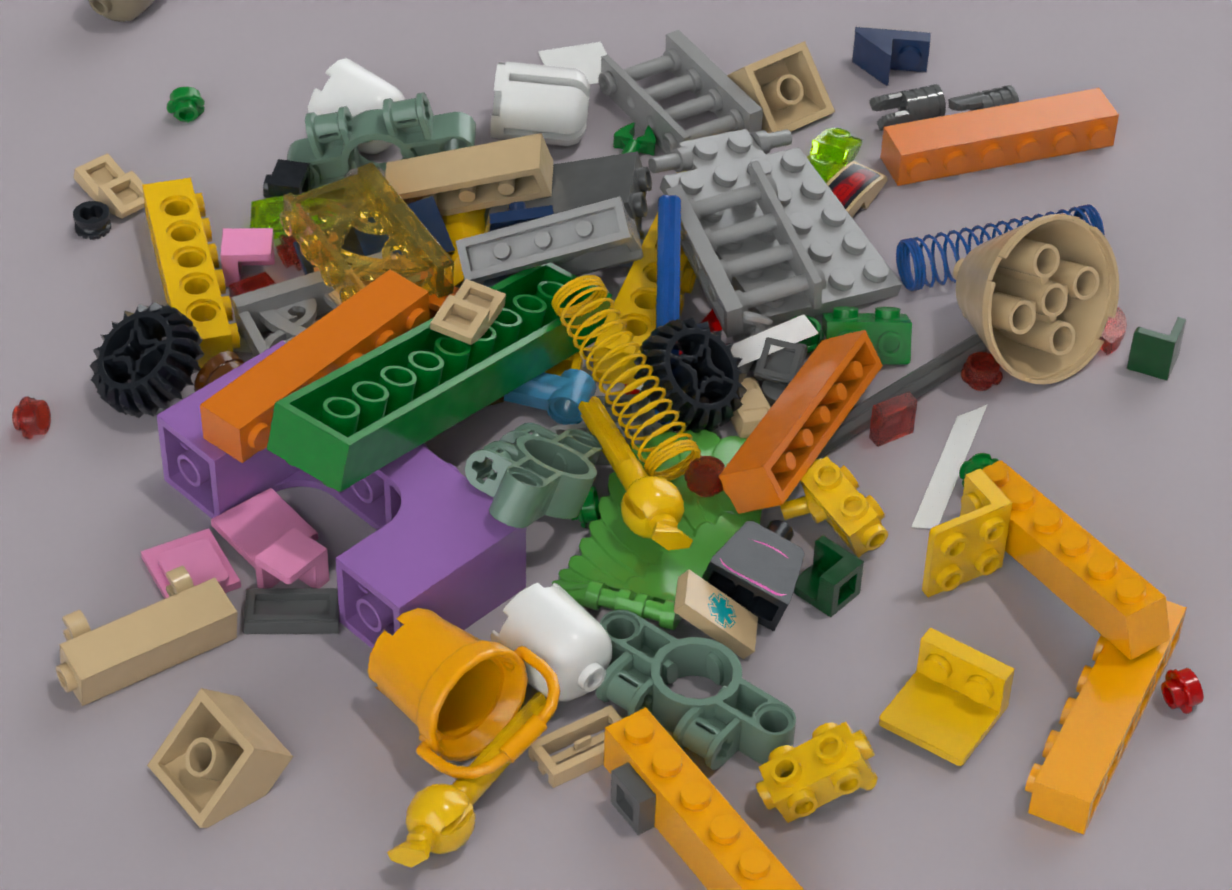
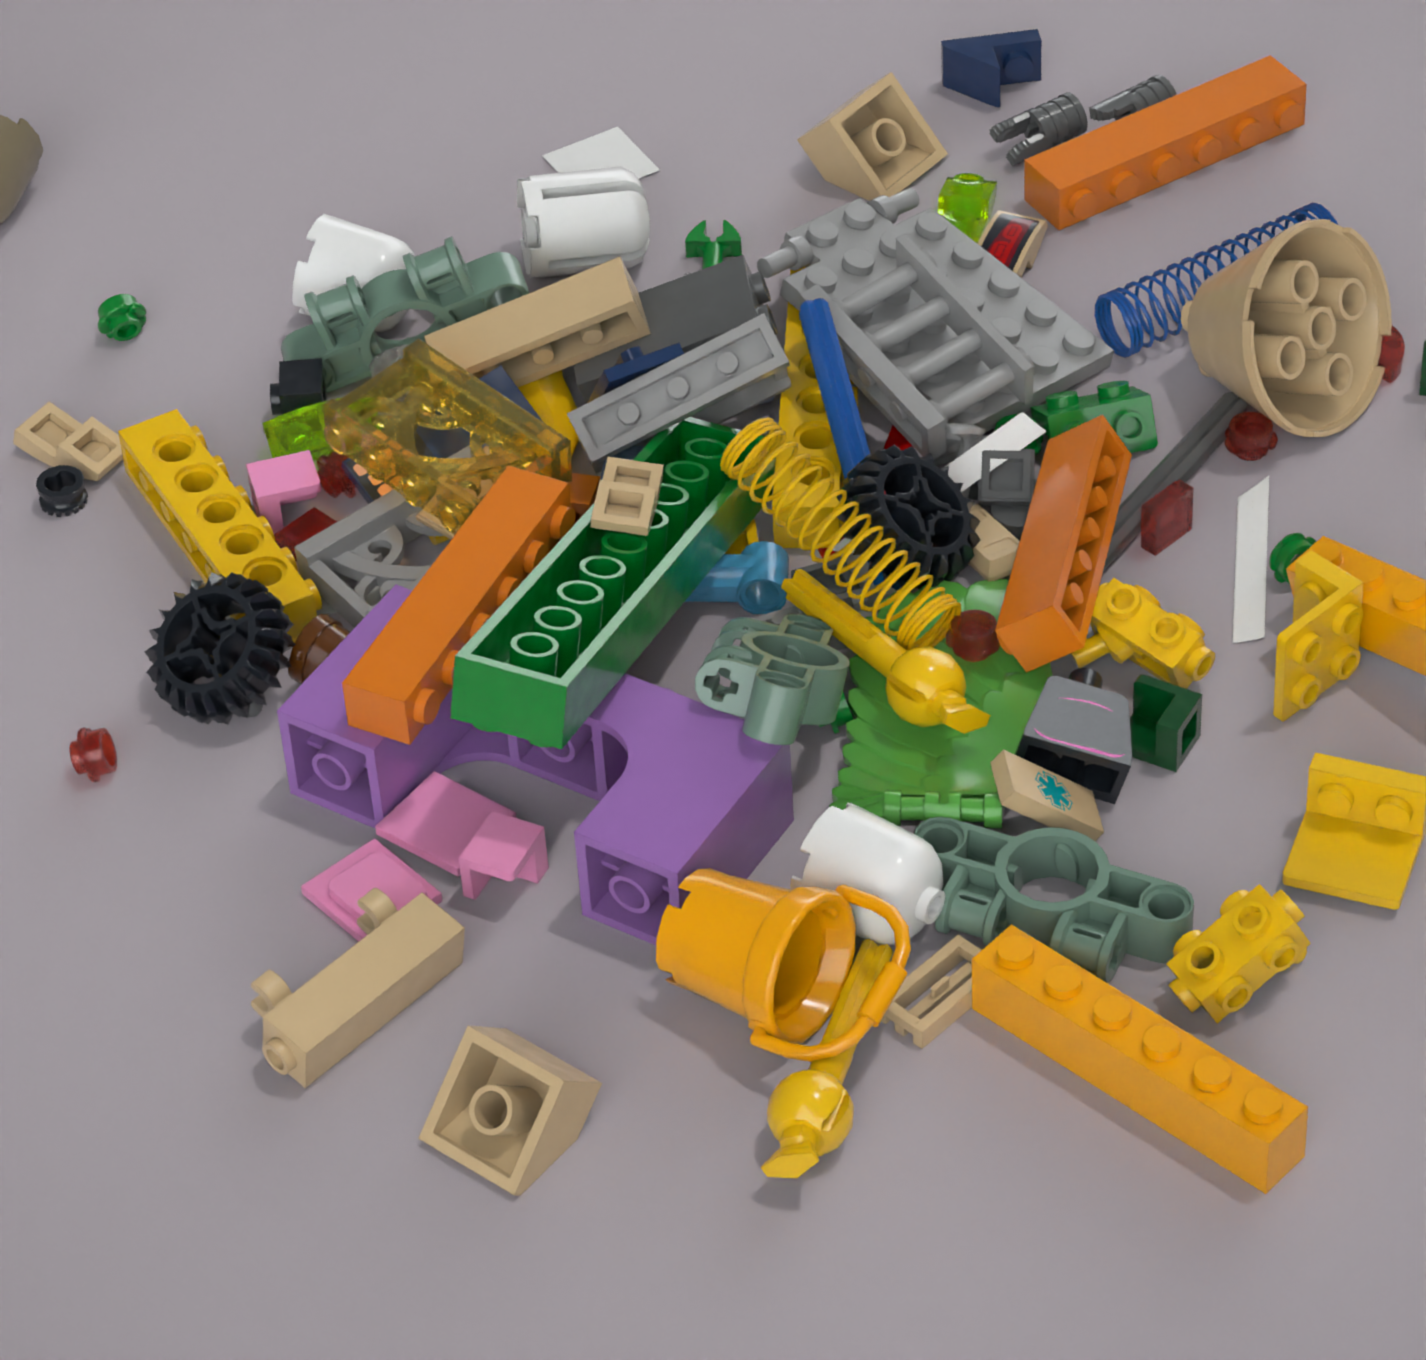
camera: 10 degrees left, 0 degrees up
(291, 611) = (520, 914): dark grey tile -> none
(633, 798) = (1029, 1036): dark grey tile -> none
(694, 73) = (759, 142): light grey fence -> none

